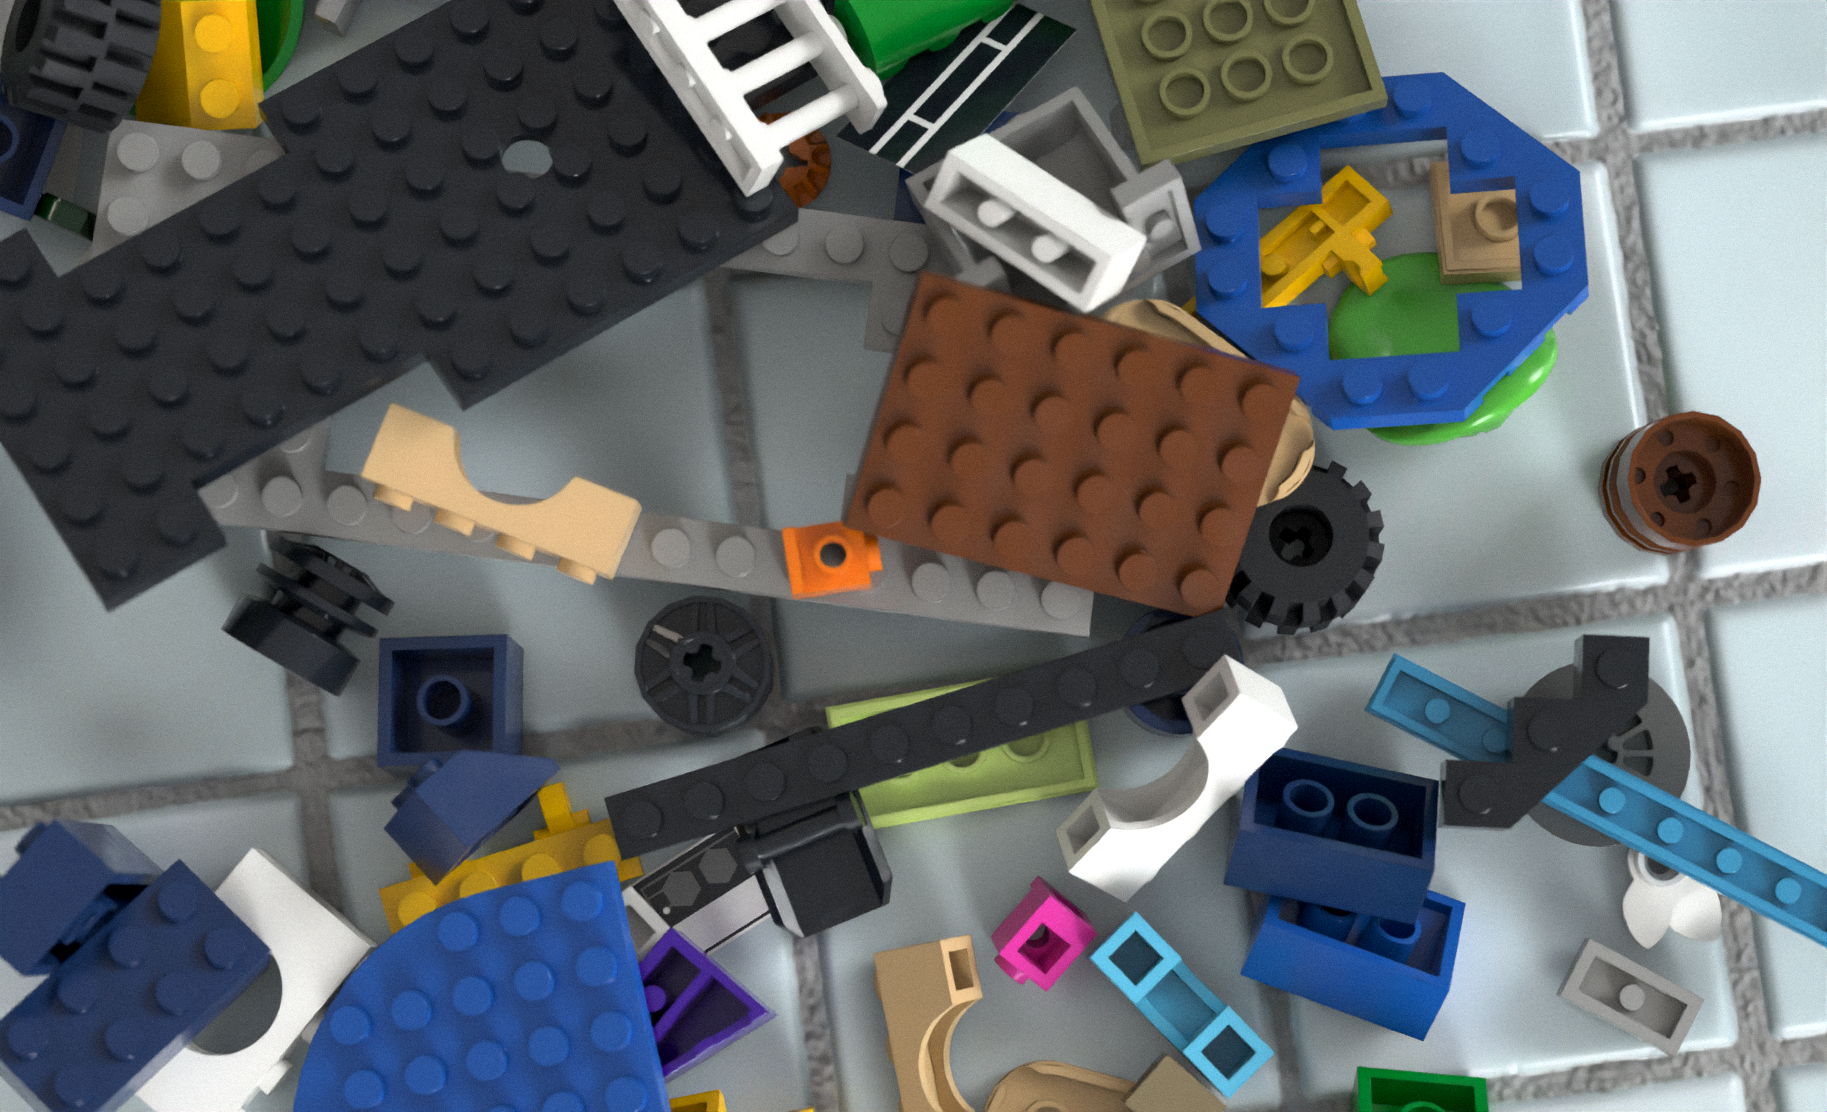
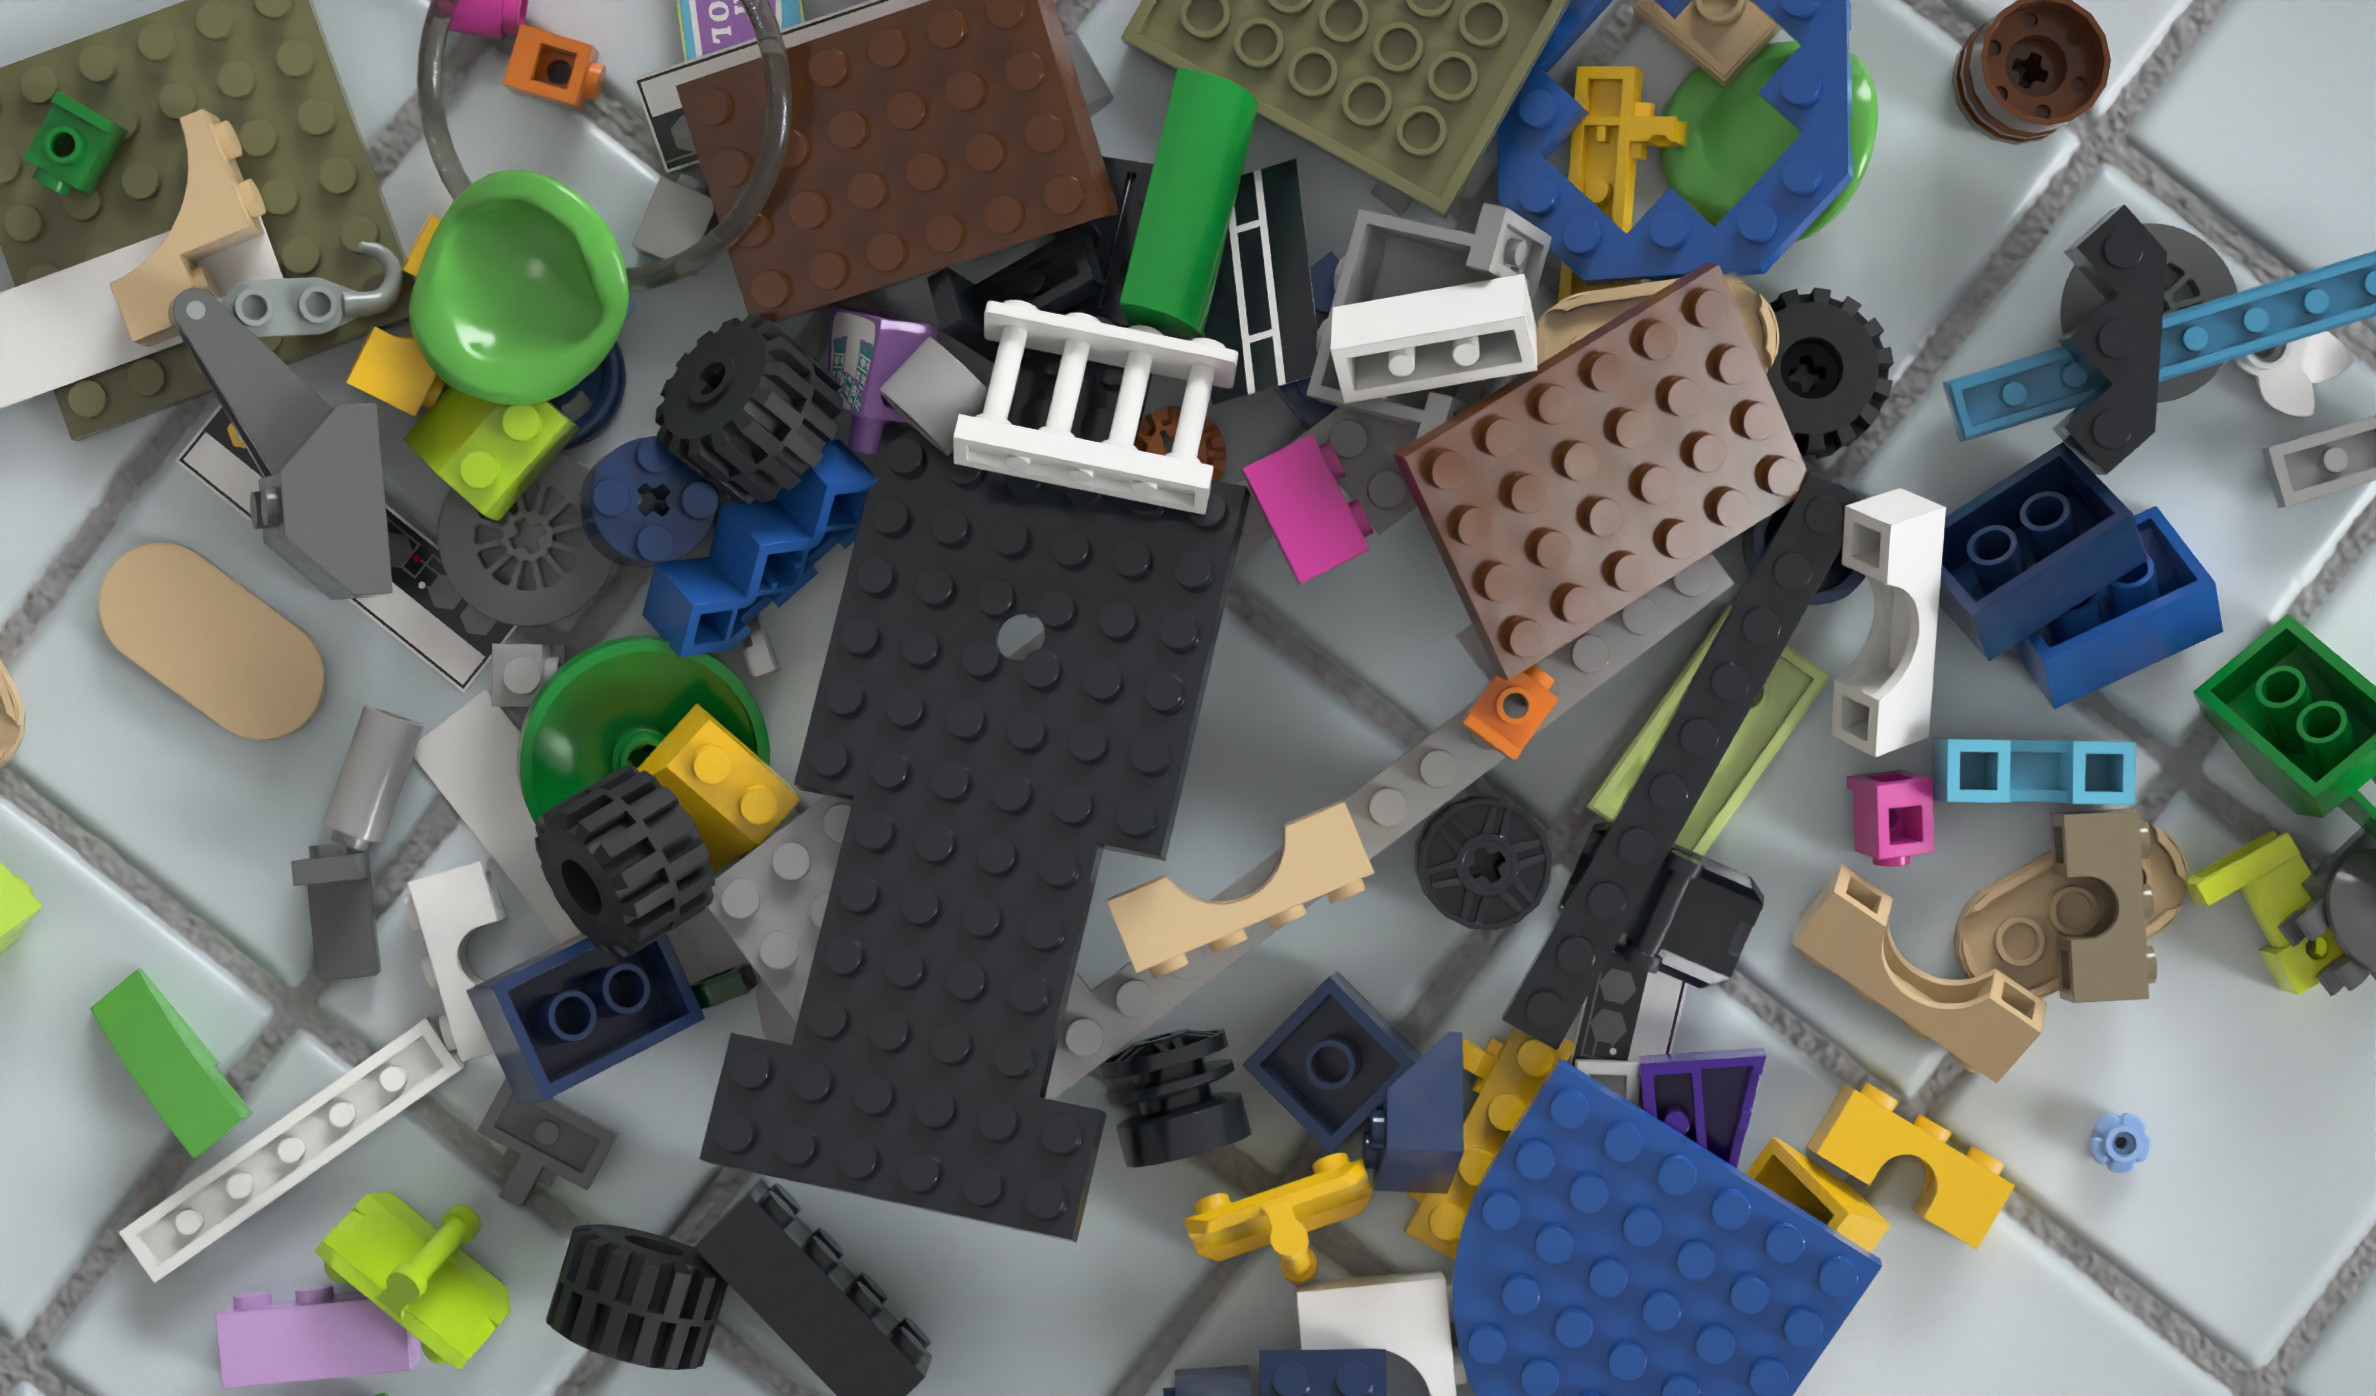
camera: 45 degrees left, 5 degrees up
(299, 782) = (1282, 1216): none -> yellow shield
(825, 267) = (1307, 508): none -> dark pink brick

